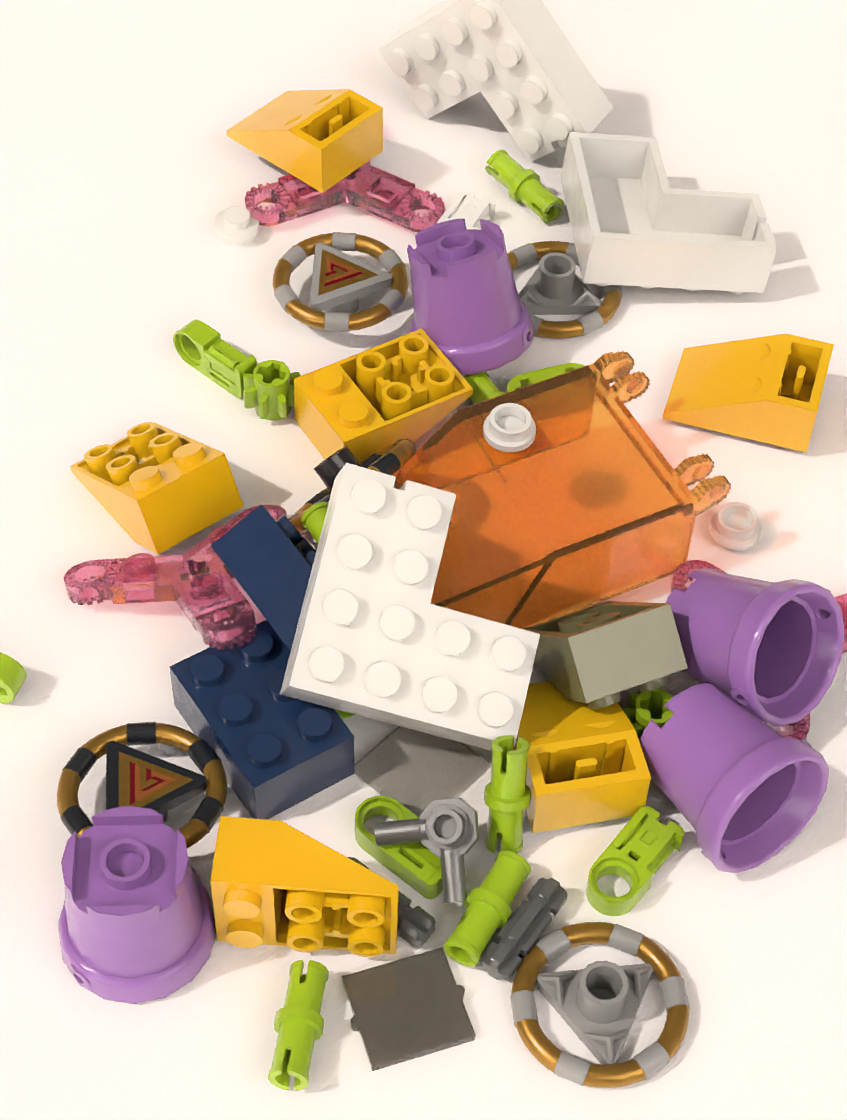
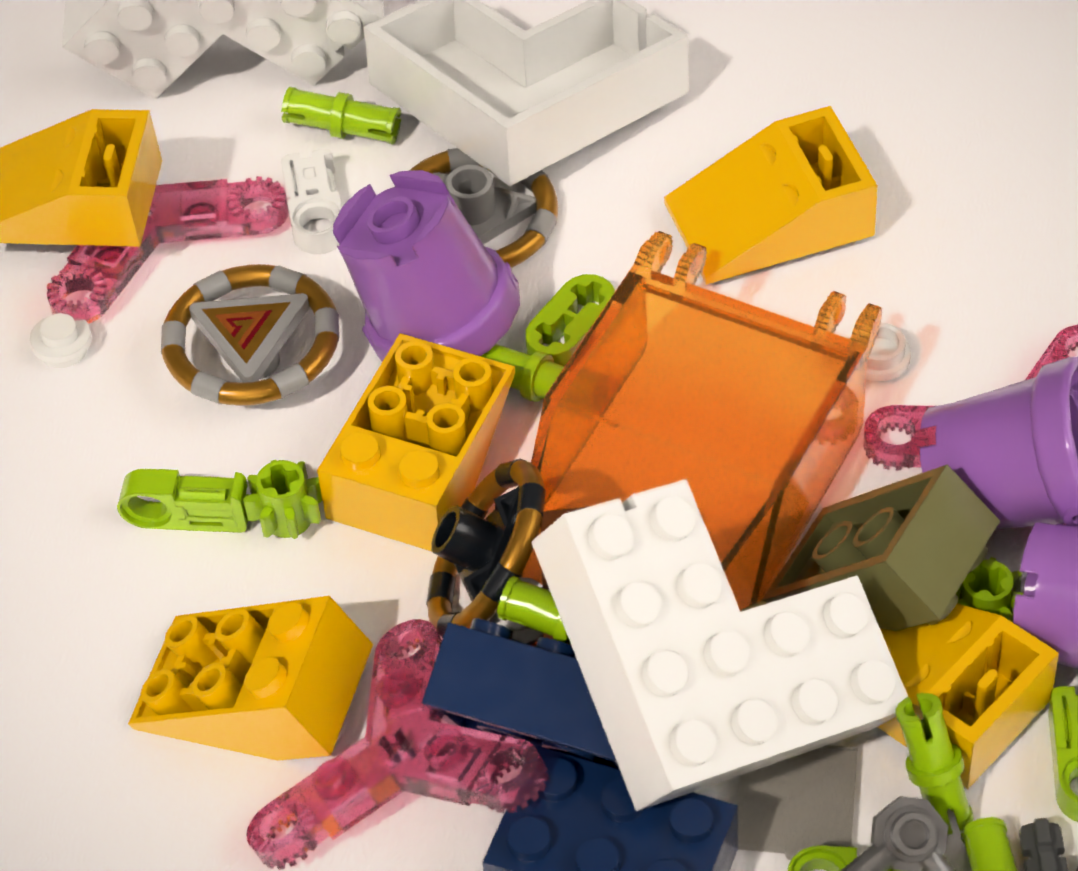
camera: 30 degrees left, 0 degrees up
(509, 428) = (624, 382): white plate -> none

